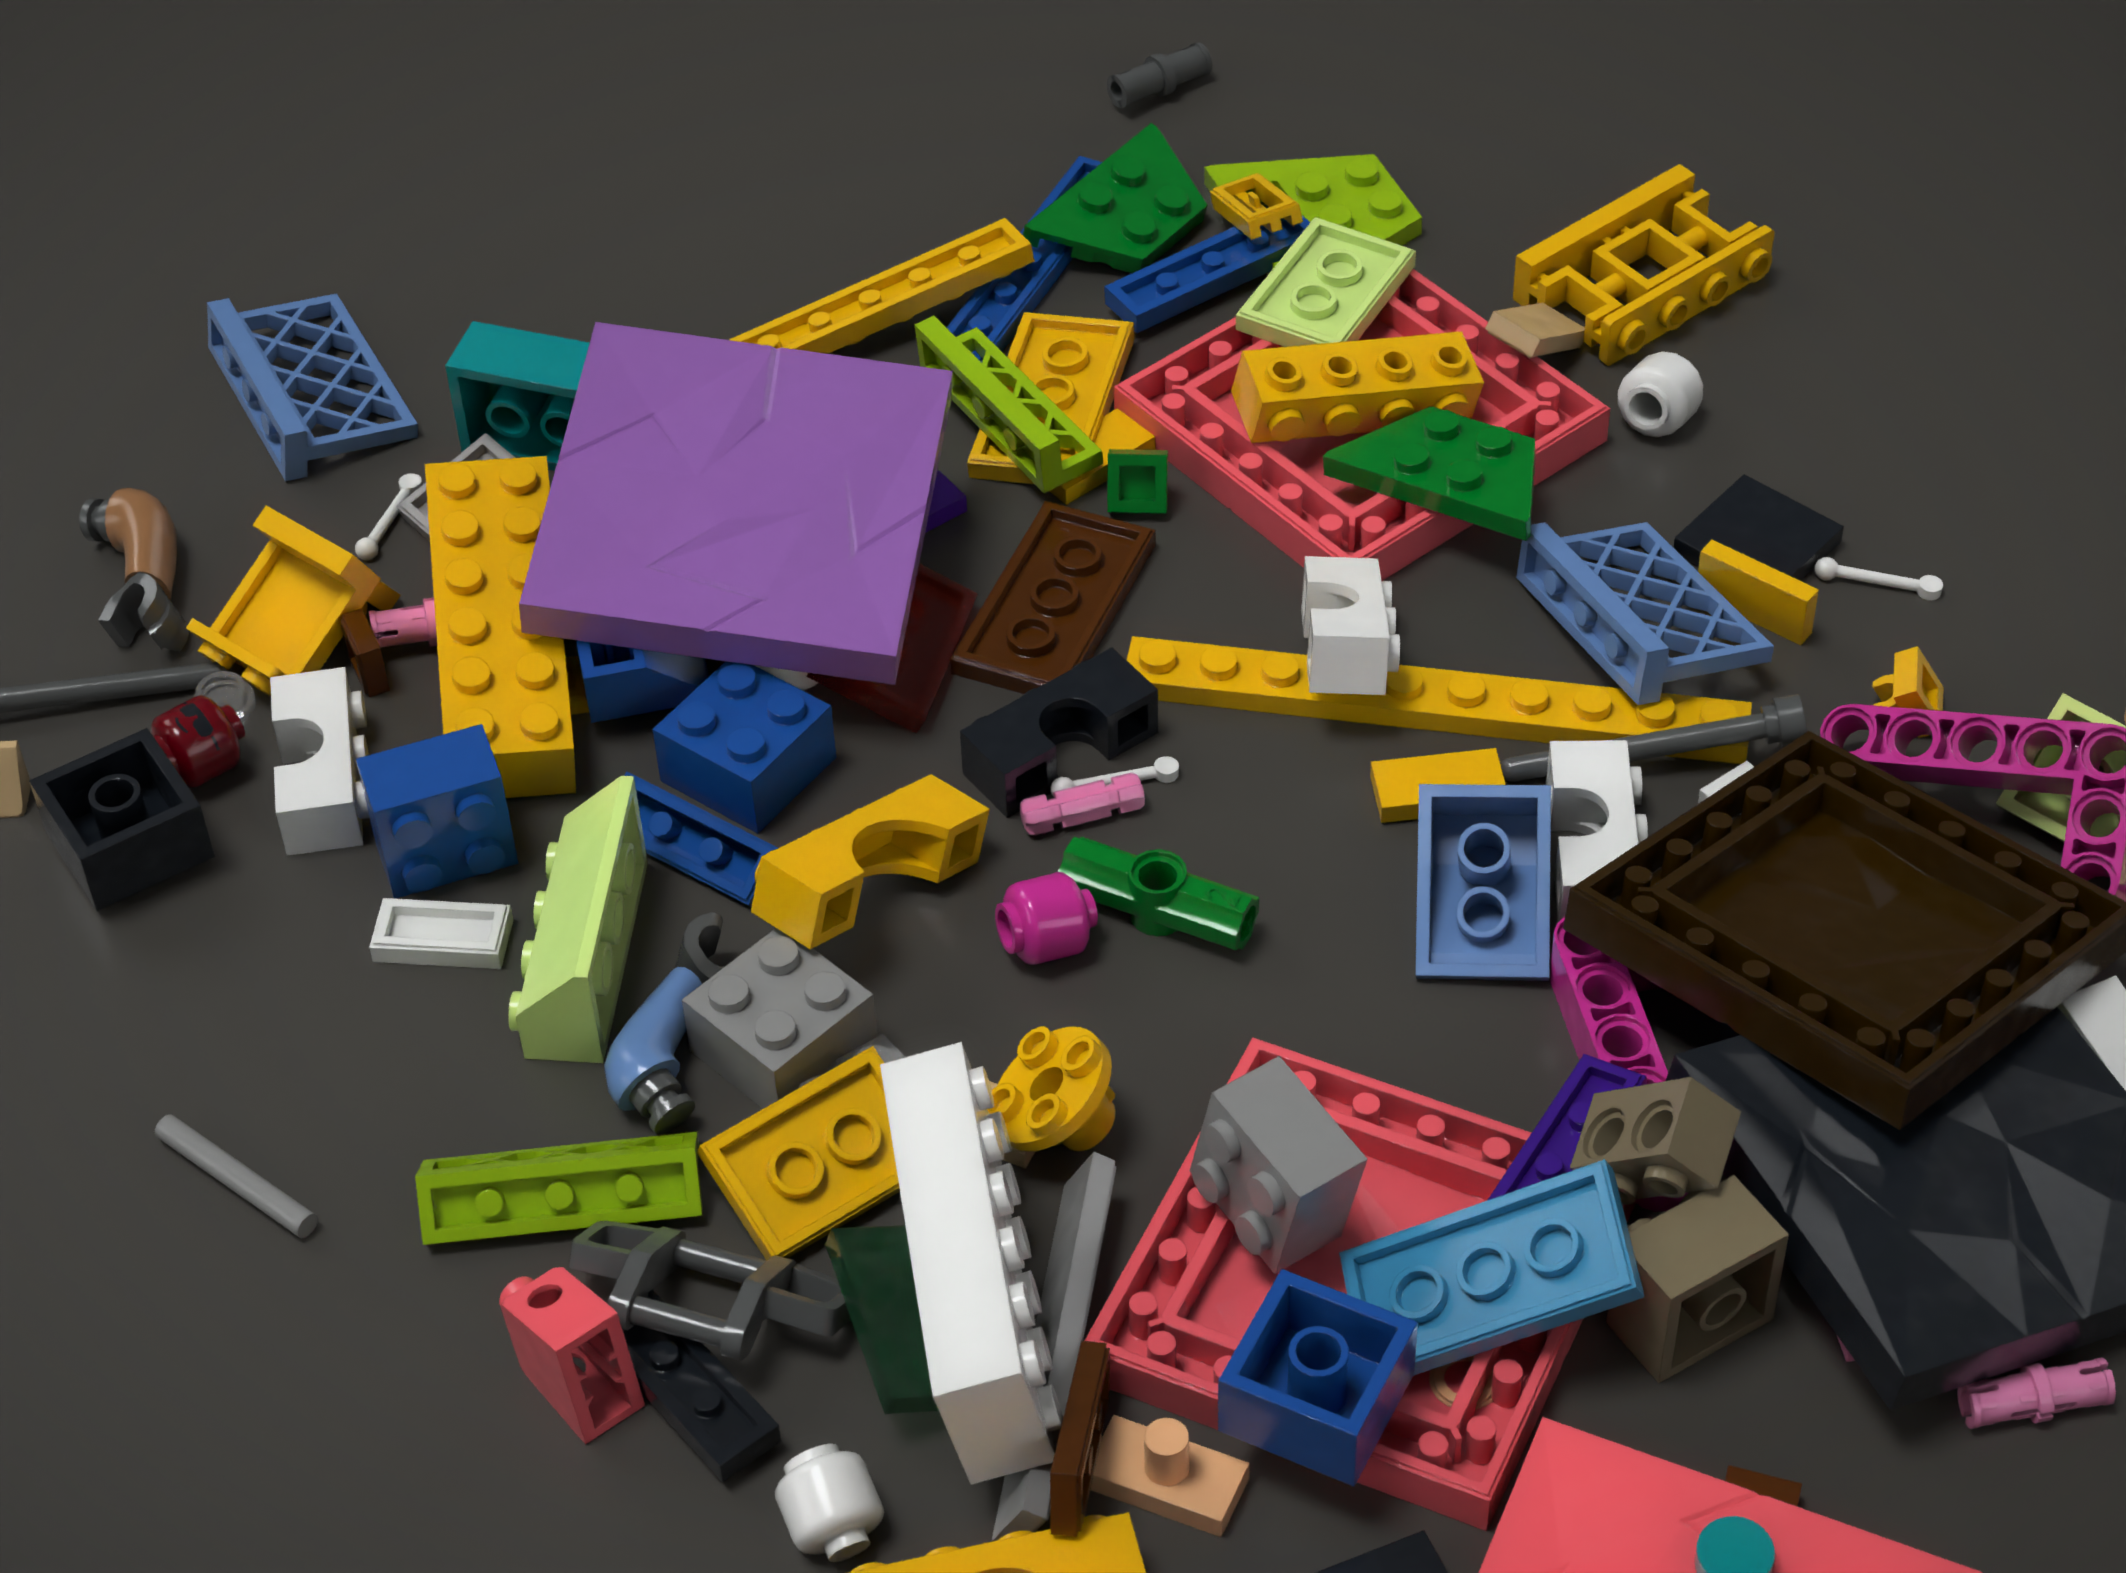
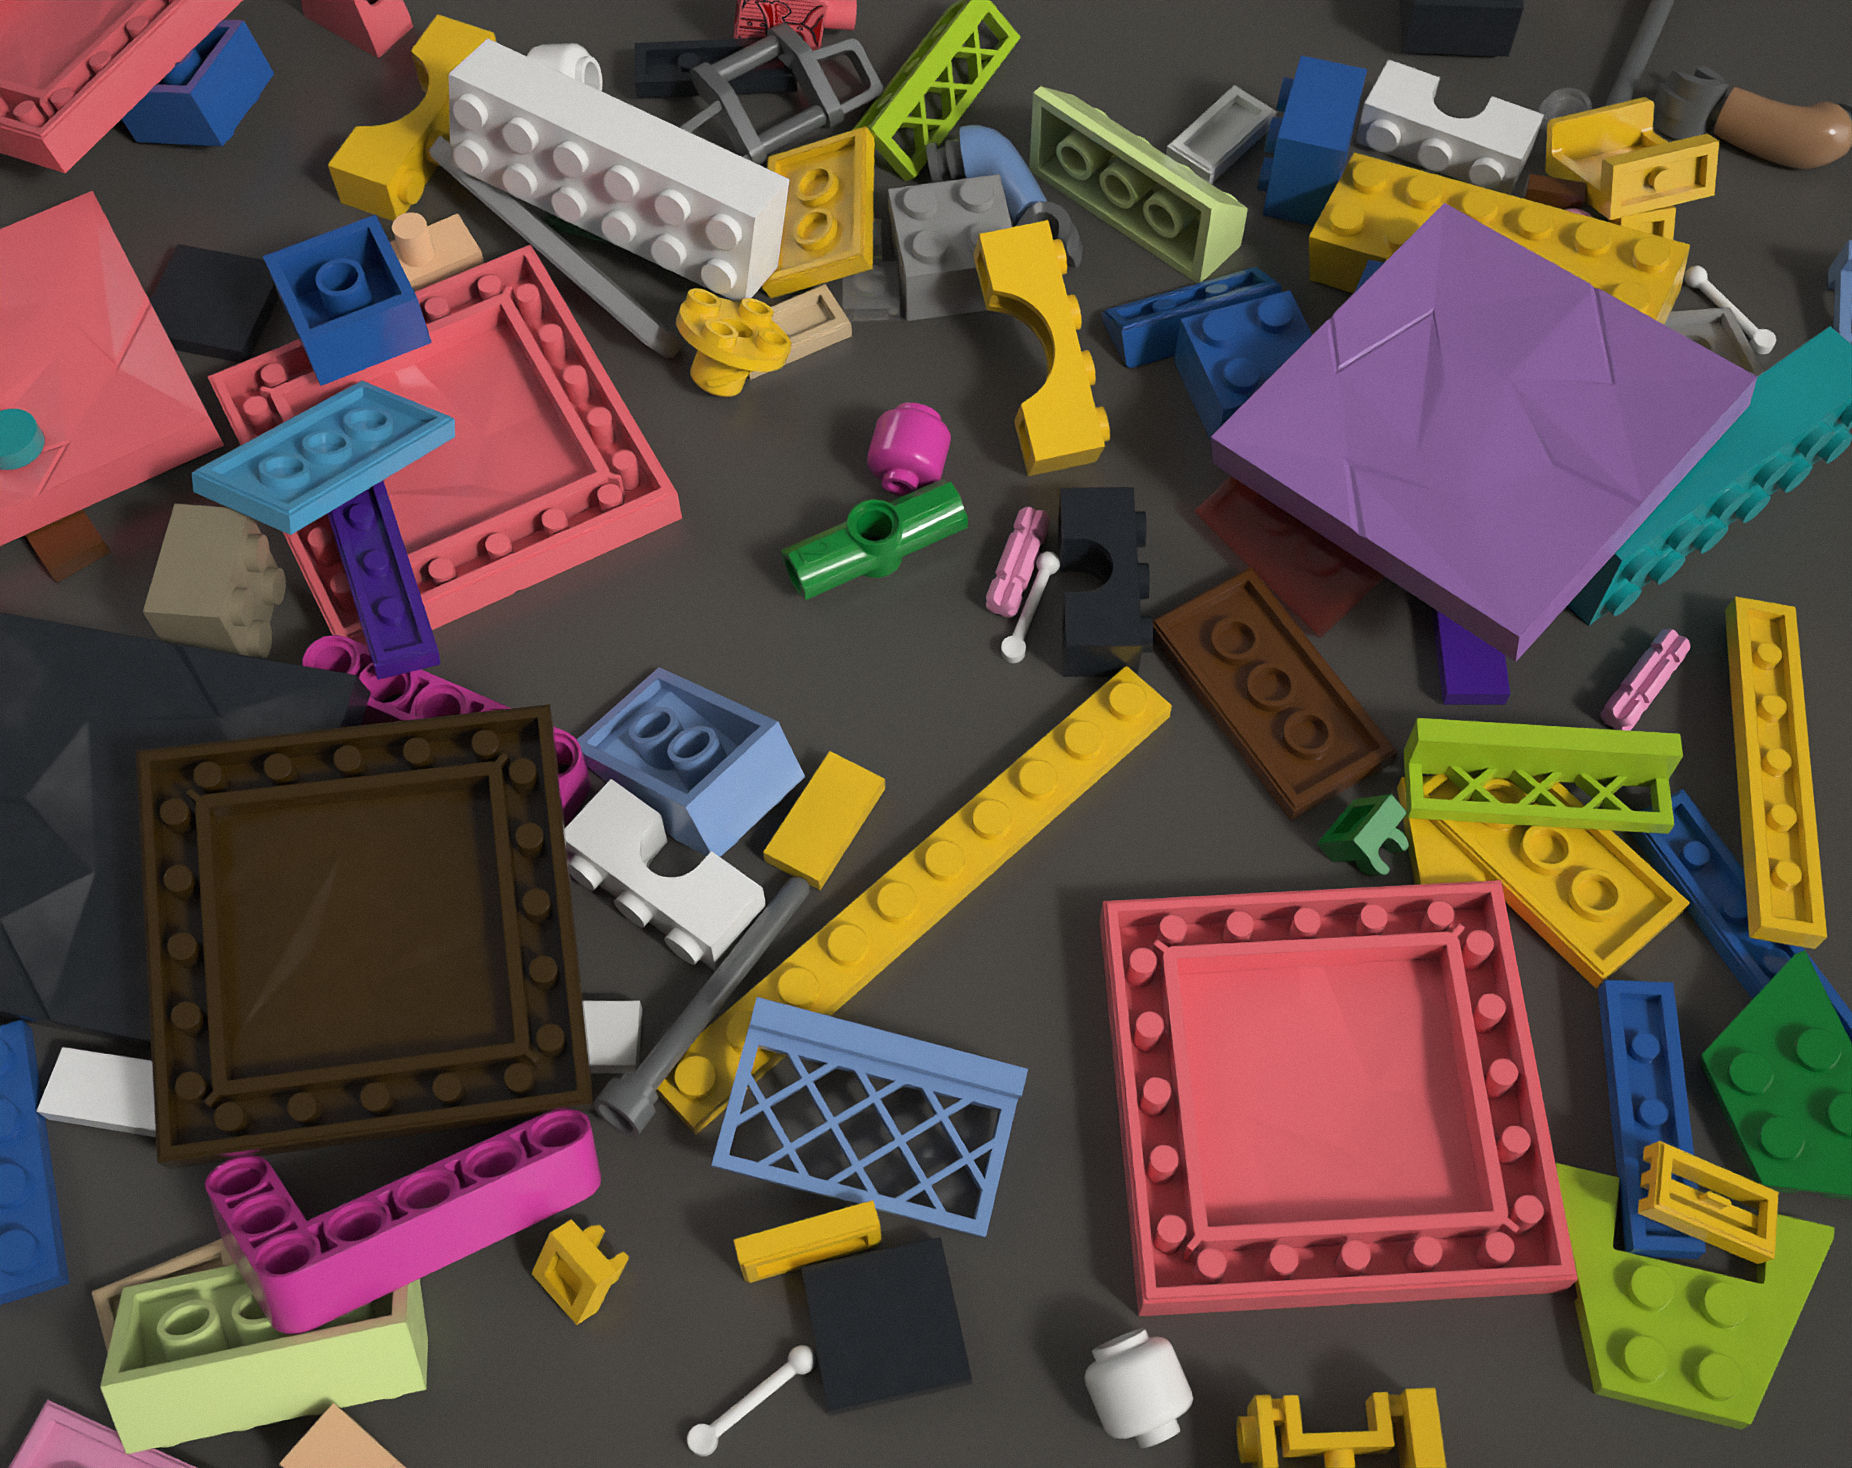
camera: 125 degrees right, 15 degrees up
(199, 738) = (1519, 65): dark red head -> none
(1079, 1439) = (455, 186): reddish brown tile -> none
(1276, 1165) = (515, 375): light grey brick -> none
(1326, 287) = (1508, 1157): yellowish green tile -> none
(1348, 626) = (978, 805): white arch -> none
(1352, 385) = (1325, 1065): yellow brick -> none
(1447, 467) = (1152, 1064): green wing -> none
(1535, 330) = (1315, 1332): tan tile -> none
(1659, 1138) = (294, 592): dark tan brick -> none

